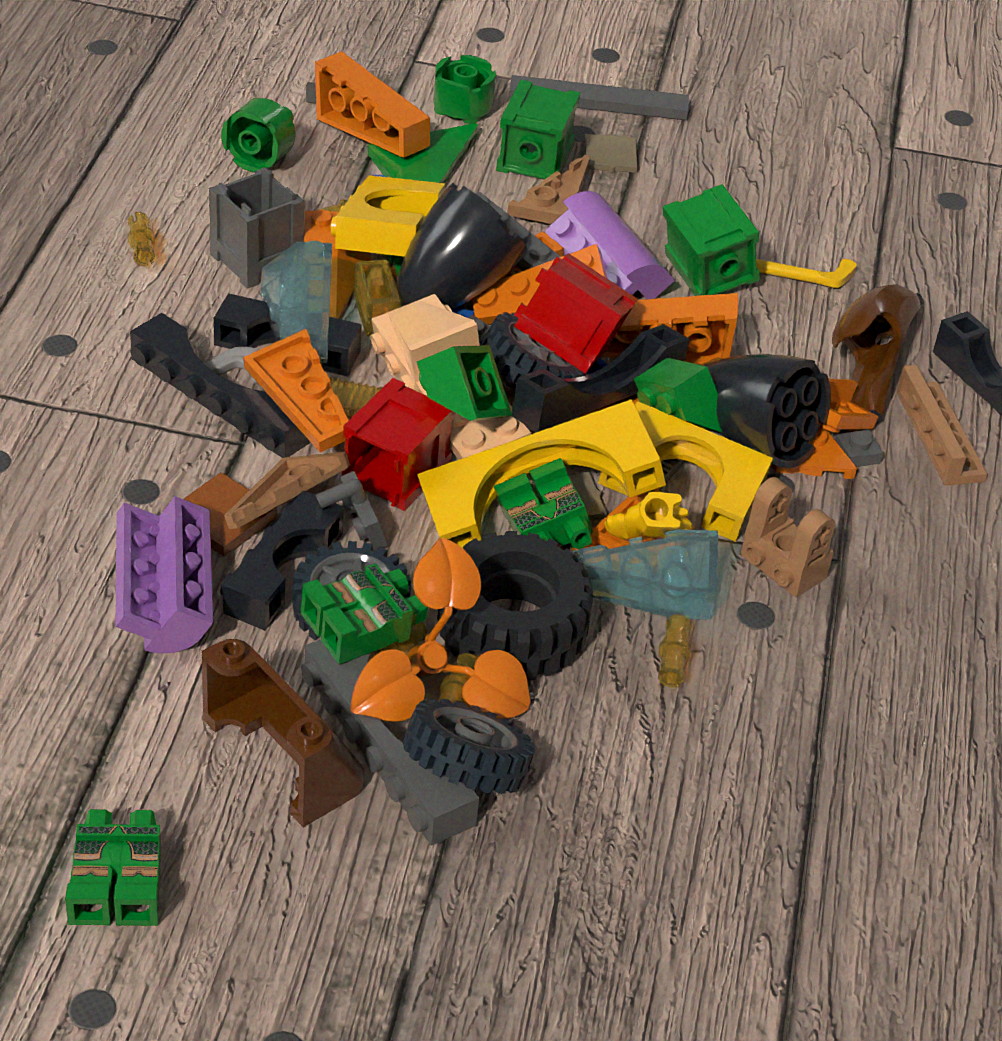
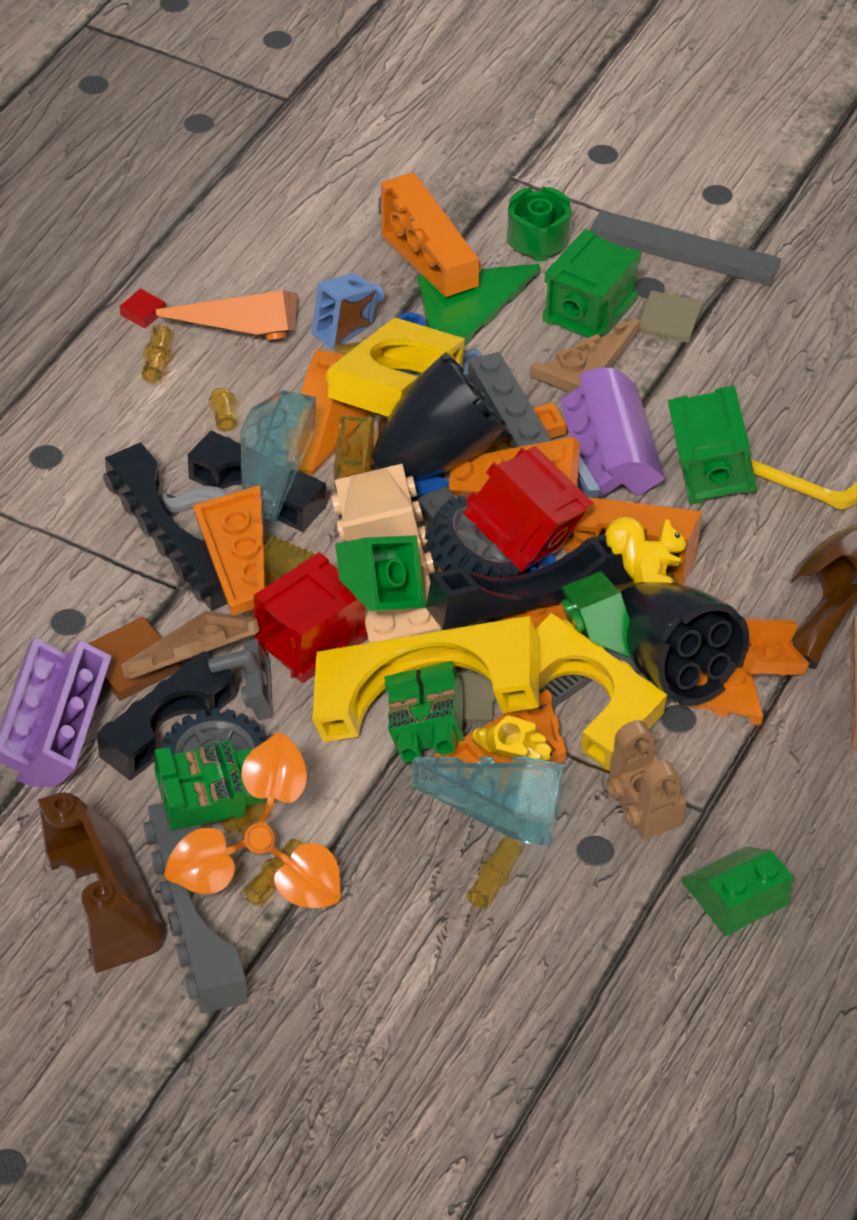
camera: 20 degrees right, 5 degrees up
(110, 203) = (141, 308): none -> red tile
(190, 195) = (257, 314): none -> orange wedge
(223, 271) = (222, 403): none -> clear yellow pin
(253, 223) = (260, 357): dark grey container -> none
(259, 134) = (307, 252): green brick -> none
(315, 174) = (344, 308): none -> medium blue torso
(468, 746) = (254, 930): black wheel -> none
(531, 572) = (362, 763): black tyre -> none
(701, 341) = (641, 558): none -> yellow animal
(860, 447) = (777, 694): dark grey plate -> none
(912, 620) = (741, 887): none -> green slope

